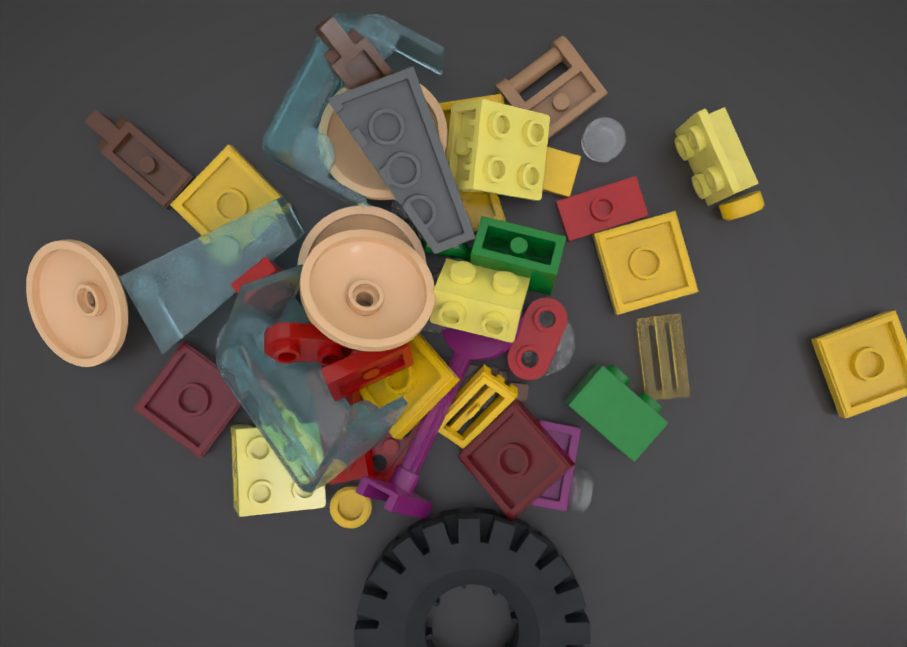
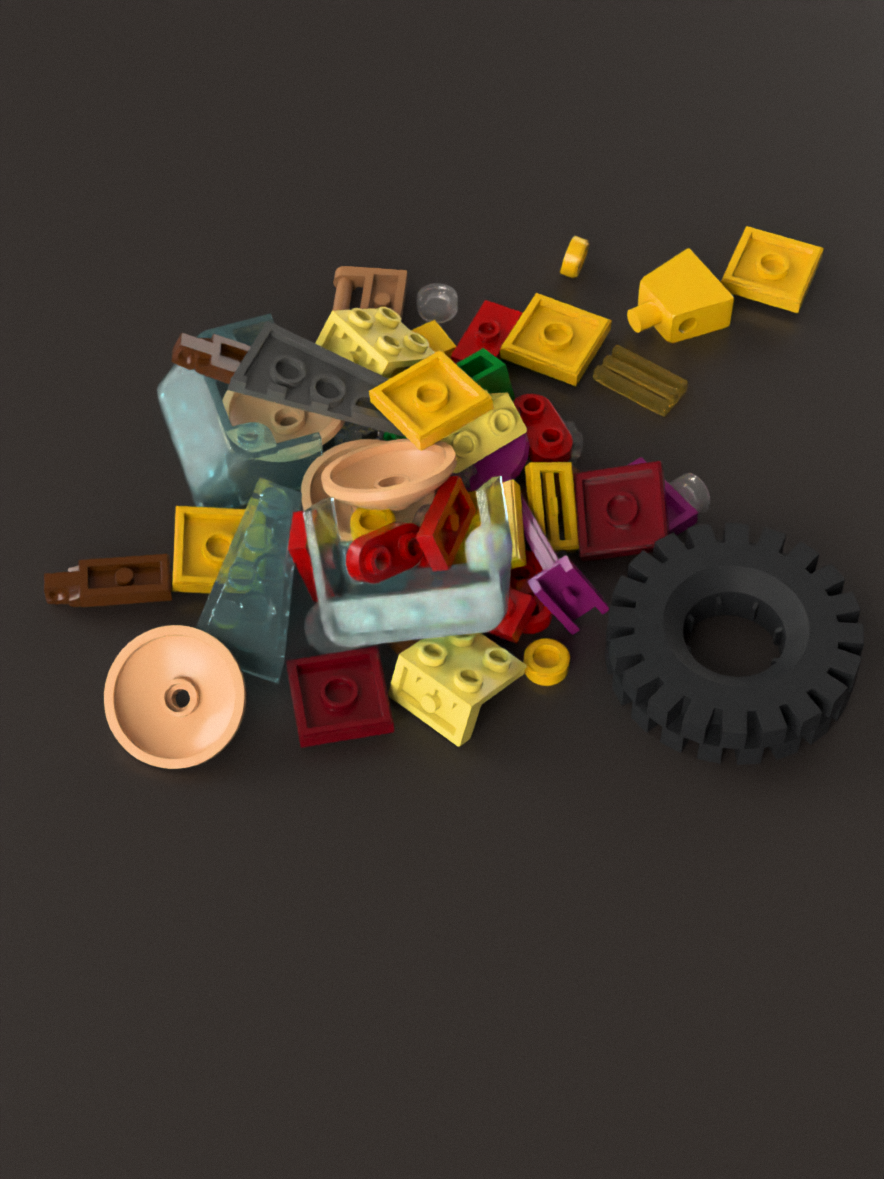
camera: 45 degrees left, 35 degrees down
(460, 259) = (431, 400): none -> yellow plate
(616, 410) = (649, 425): green brick -> none
(714, 155) = (520, 242): light yellow bracket -> none
(769, 325) = (681, 300): none -> yellow torso

